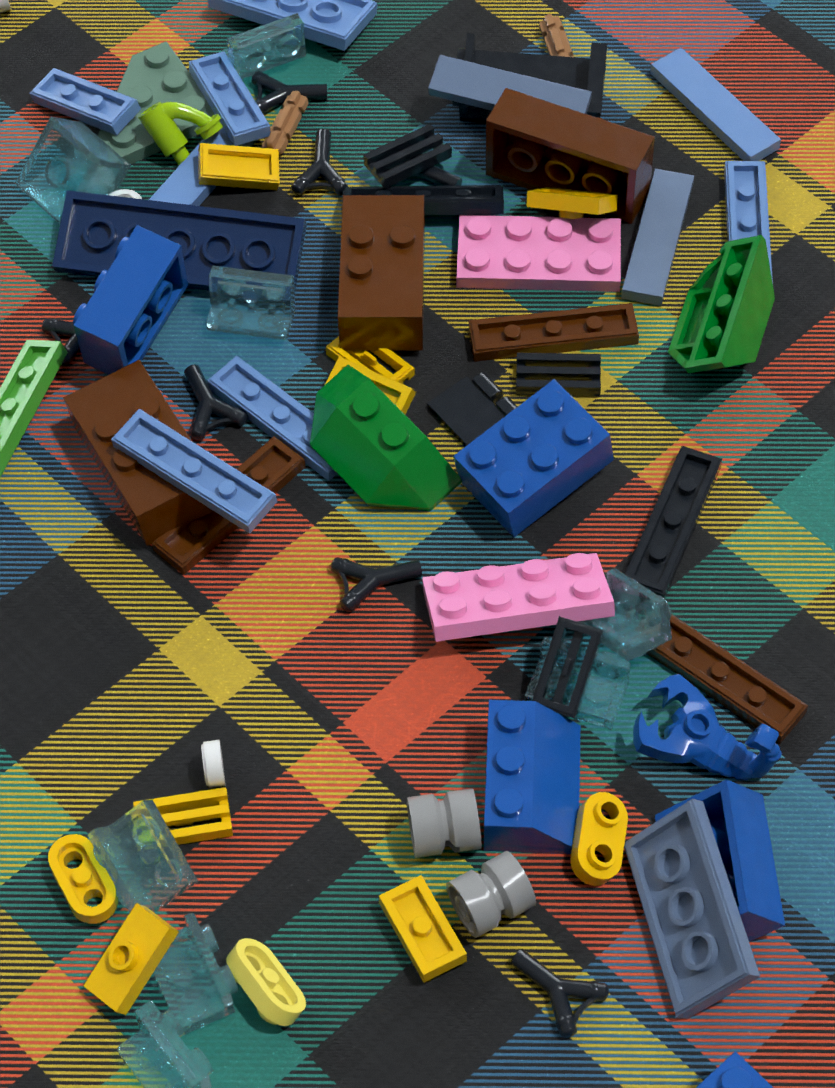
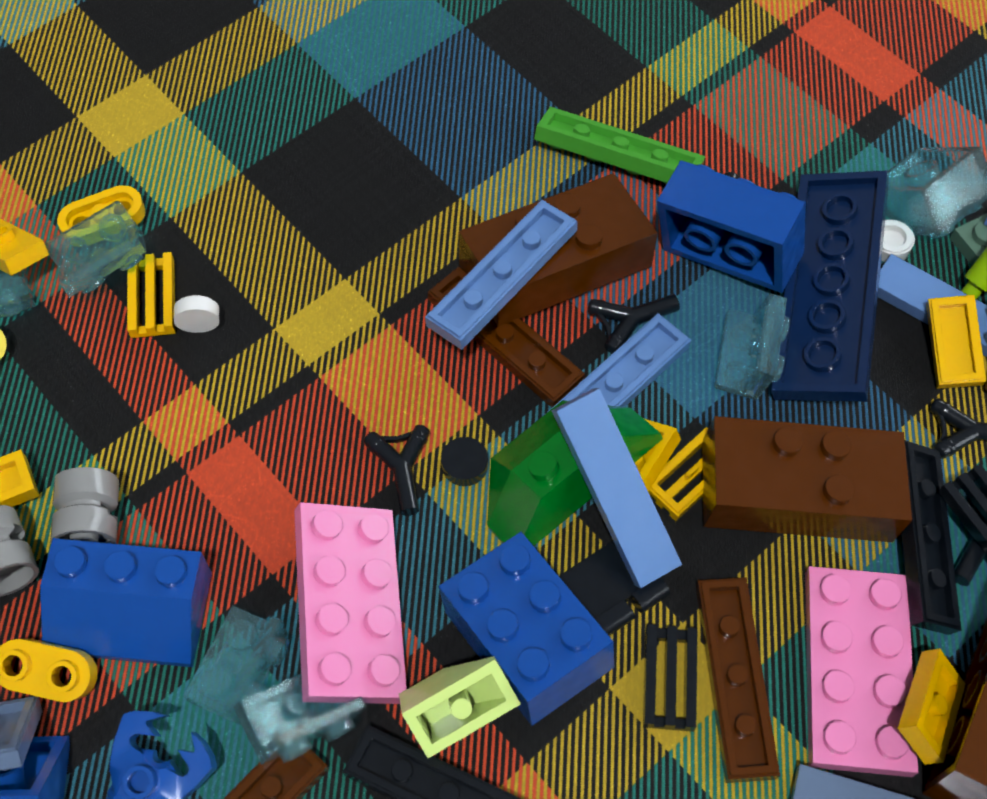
camera: 90 degrees right, 5 degrees up
(367, 528) = (464, 461): none -> black tile
(410, 383) = (617, 487): none -> medium blue tile
(585, 671) = (263, 651): black tile -> none
(606, 502) = (456, 703): none -> yellowish green slope

